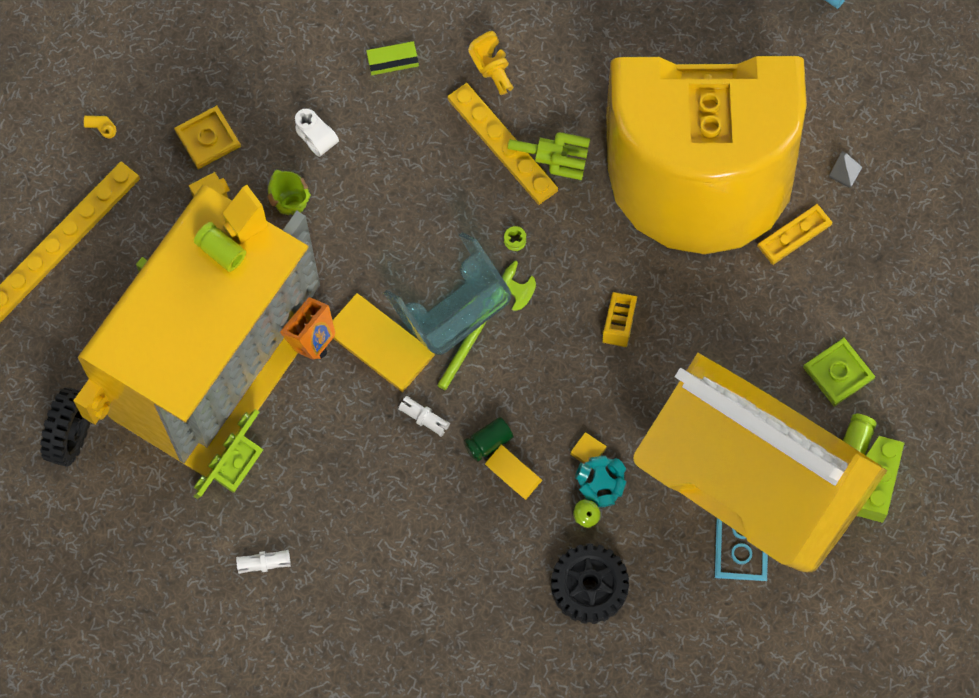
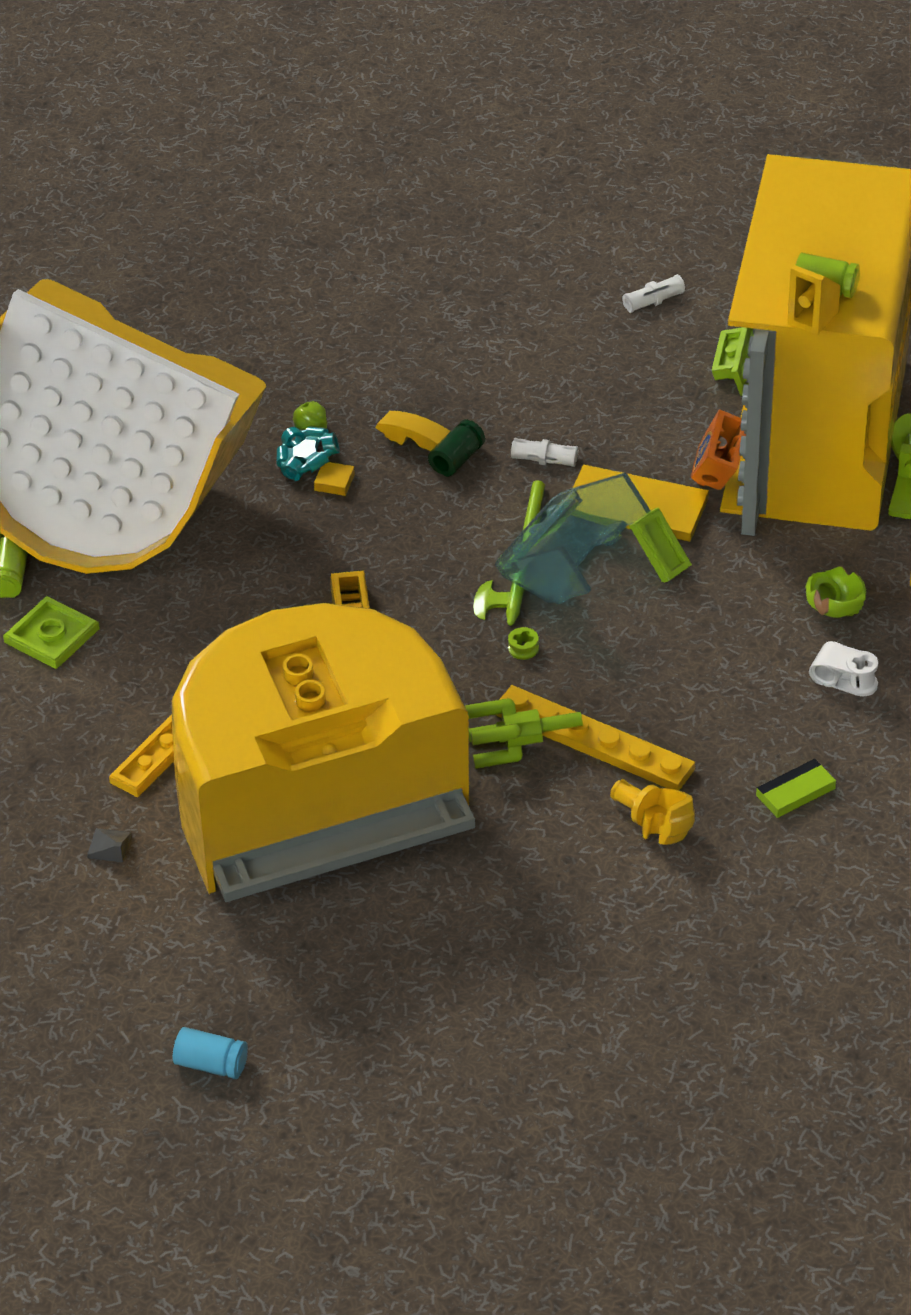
camera: 160 degrees right, 25 degrees down
(387, 275) = (660, 545): none -> lime tile
(595, 564) = (286, 362): black wheel -> none

